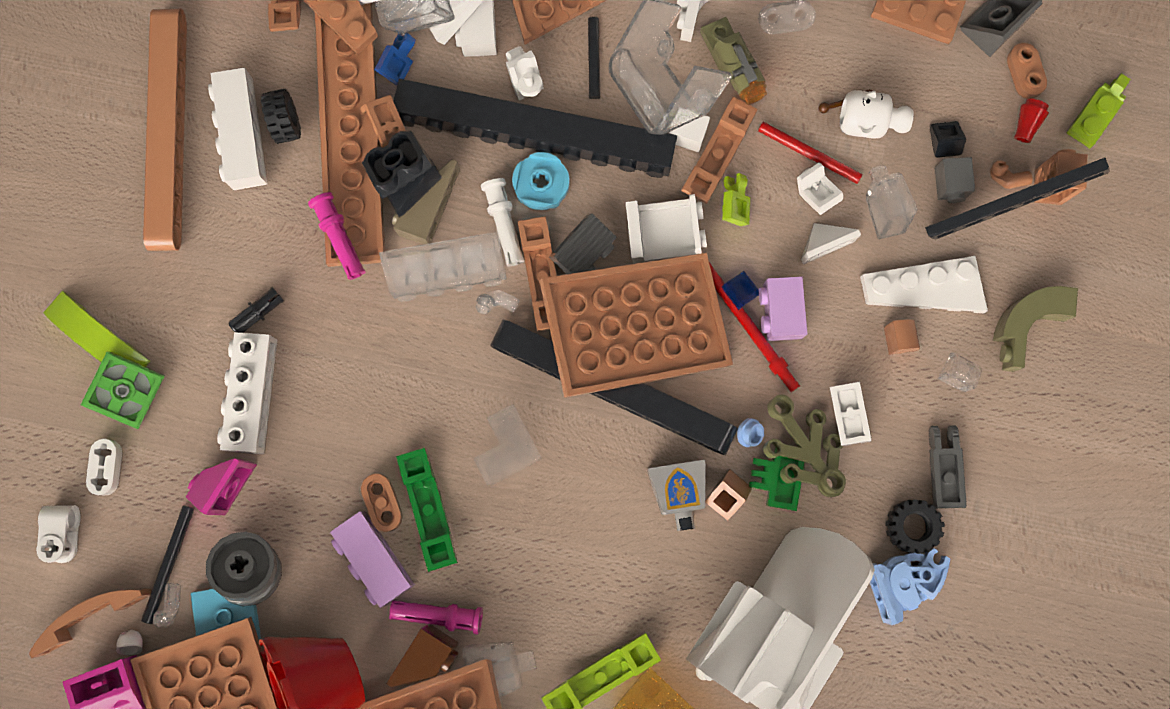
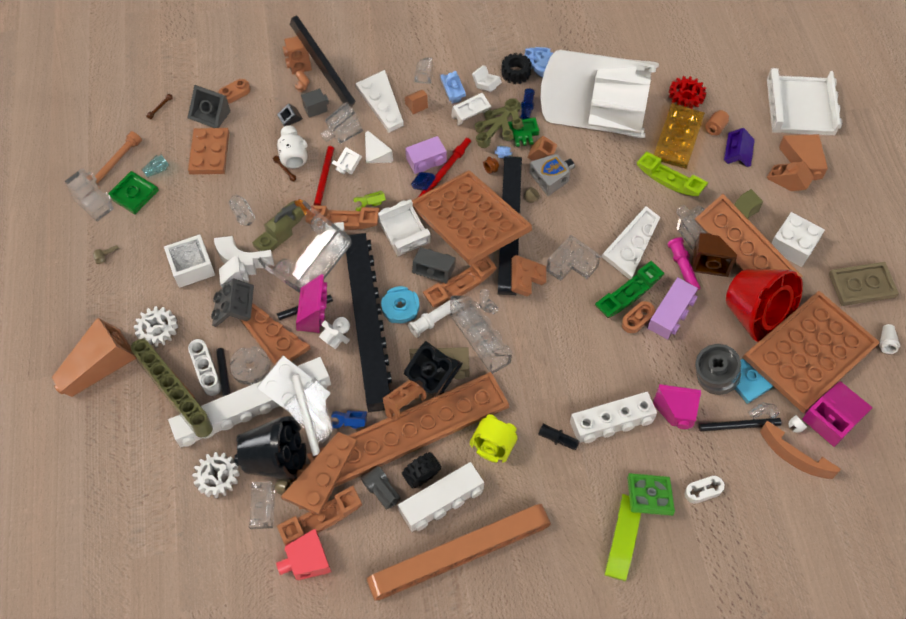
camera: 110 degrees left, 20 degrees down
(58, 529) = (756, 496): white piece -> none
(280, 220) = (494, 439): none -> neon yellow brick
(295, 62) = (377, 483): none -> dark grey piece
(332, 224) = (483, 405): dark pink pin -> none
(504, 550) = (629, 246): none -> white wing
(514, 364) = (524, 273): none -> nougat plate
(572, 54) = (312, 305): none -> dark pink slope
(652, 443) = (531, 195): none -> dark tan hinge
(732, 404) = (491, 165): none -> dark orange plate
(830, 511) = (527, 104): none -> clear blue pin
(906, 464) = (485, 80): none -> white bracket
(910, 403) = (453, 87): none -> light blue hips
(947, 469) = (489, 59): dark grey hinge -> none
(1030, 119) = (265, 80): red cone -> none
(1048, 303) = (382, 54): olive arch -> none
(1099, 112) = (247, 54): lime hinge -> none

